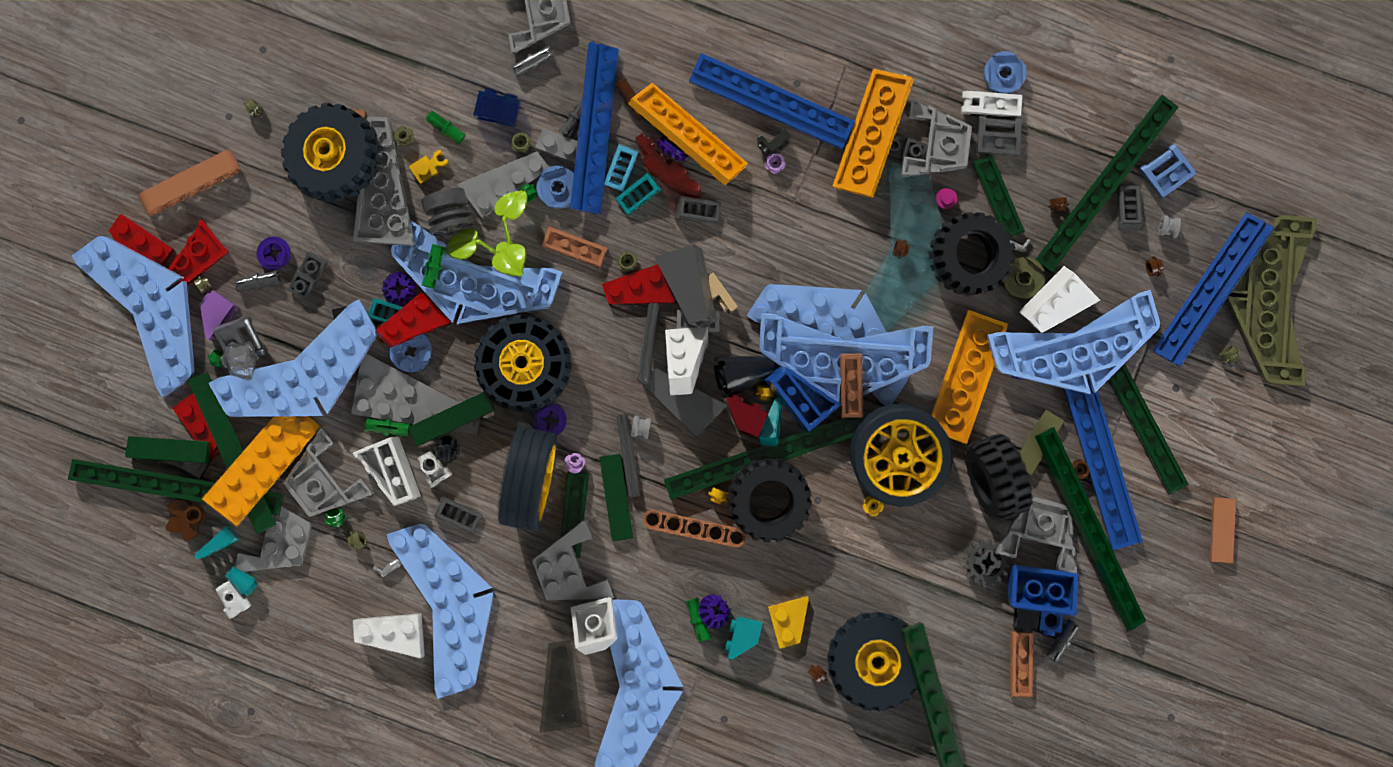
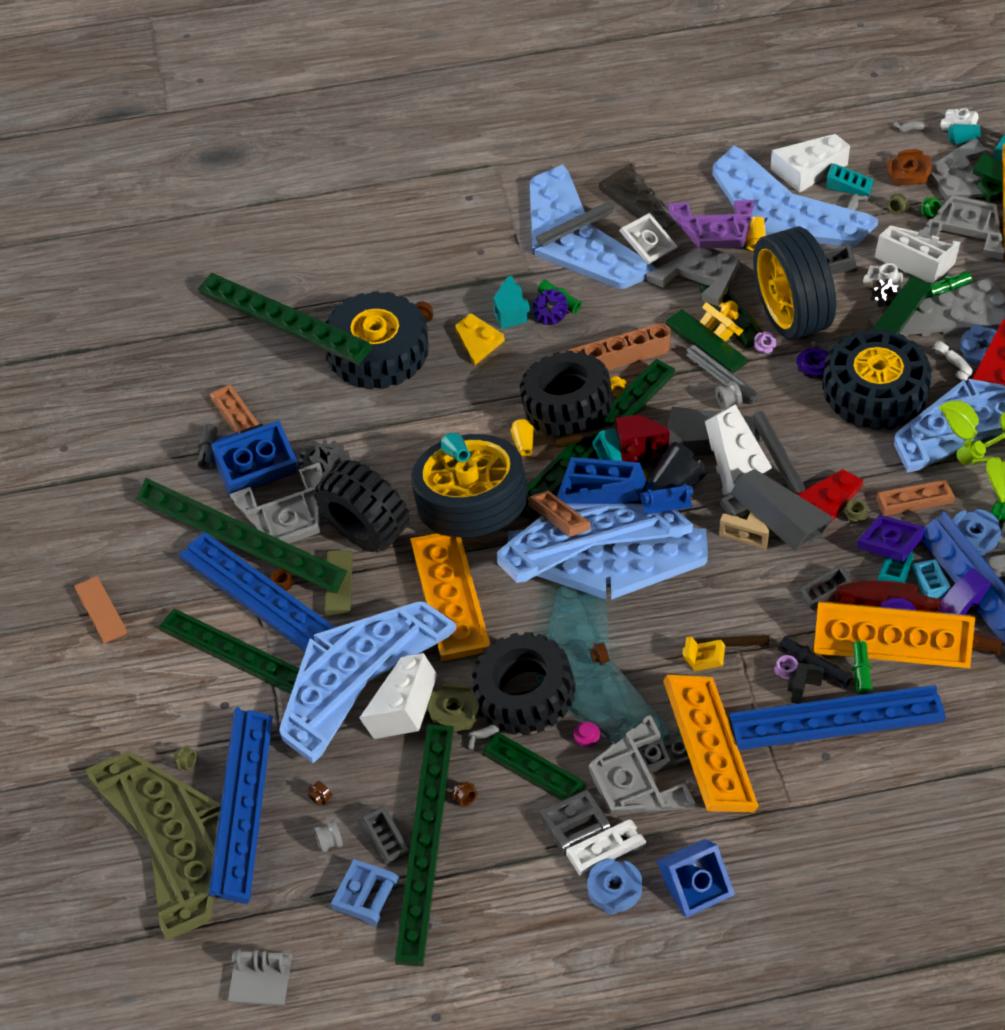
camera: 150 degrees right, 35 degrees down
(274, 624) = (912, 125): none -> light grey piece
(329, 570) = (902, 175): none -> dark orange plate
(368, 597) = (841, 180): none -> teal slope
(442, 348) = (955, 359): none -> white arm
(498, 579) = (755, 232): none -> yellow cone
(529, 598) = (715, 230): none -> medium lavender wing
(591, 503) = (727, 312): none -> yellow hips
(614, 133) = (965, 592): none -> dark purple slope
(624, 216) = (891, 538): none -> dark purple plate
(635, 688) = (574, 224): none -> dark grey axle
(727, 125) = (862, 668): none -> green axle
(756, 162) = (805, 655): none -> black pin
(764, 349) = (666, 499): none -> blue hinge
(773, 452) = (581, 437): none -> dark brown bar
(796, 211) = (735, 641): none -> dark brown bar
(822, 489) = (523, 436): none -> yellow cone
(825, 208) = (703, 655): none -> yellow bracket
(899, 481) = (455, 447): none -> teal cone
(950, 45) = (696, 877): none -> blue slope
(1268, 153) = (259, 977): none -> light grey hinge

